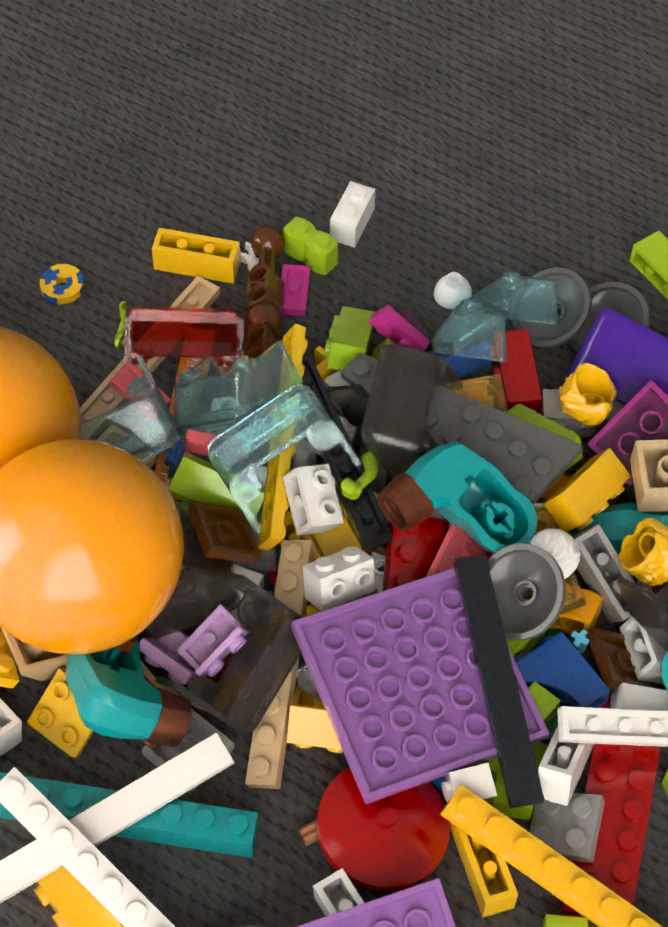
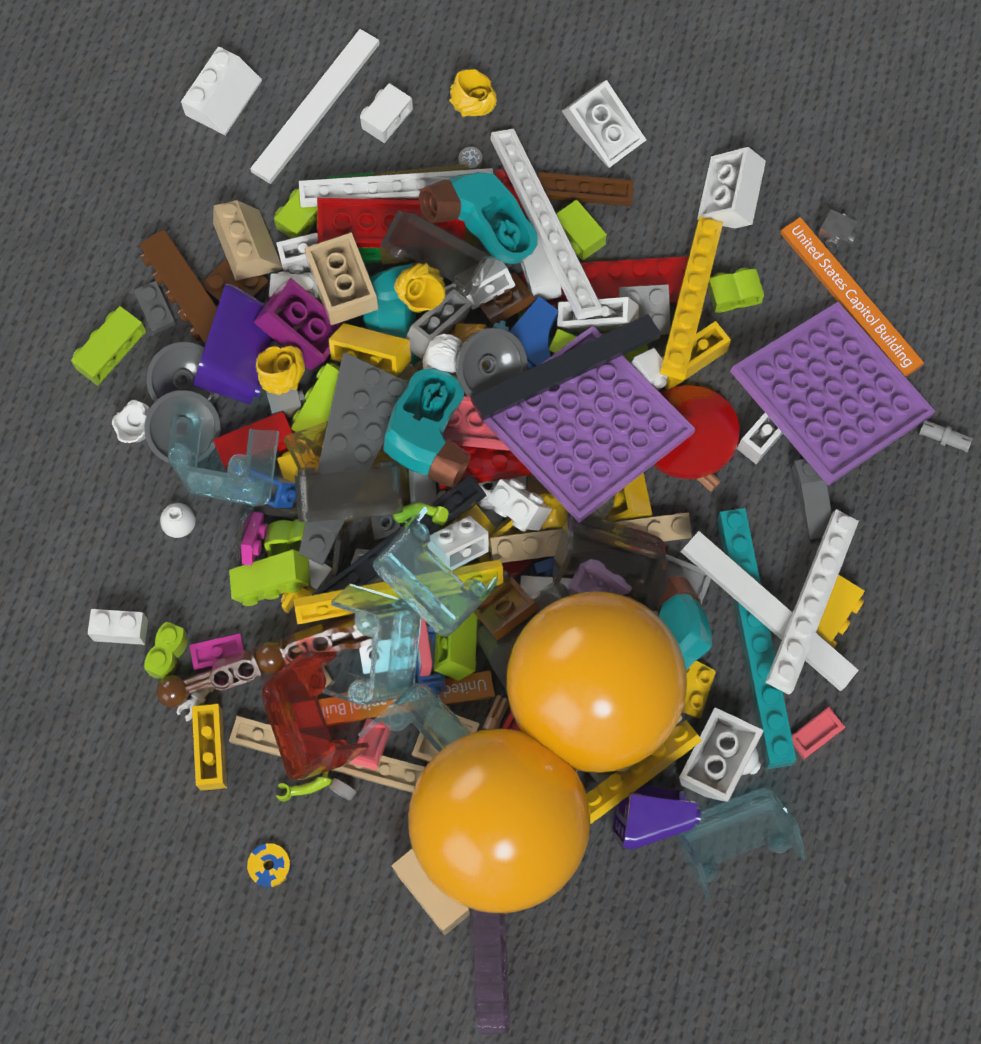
camera: 105 degrees left, 15 degrees up
(105, 356) = (342, 789): none -> light grey tile
(574, 261) = (130, 422): none -> white hair

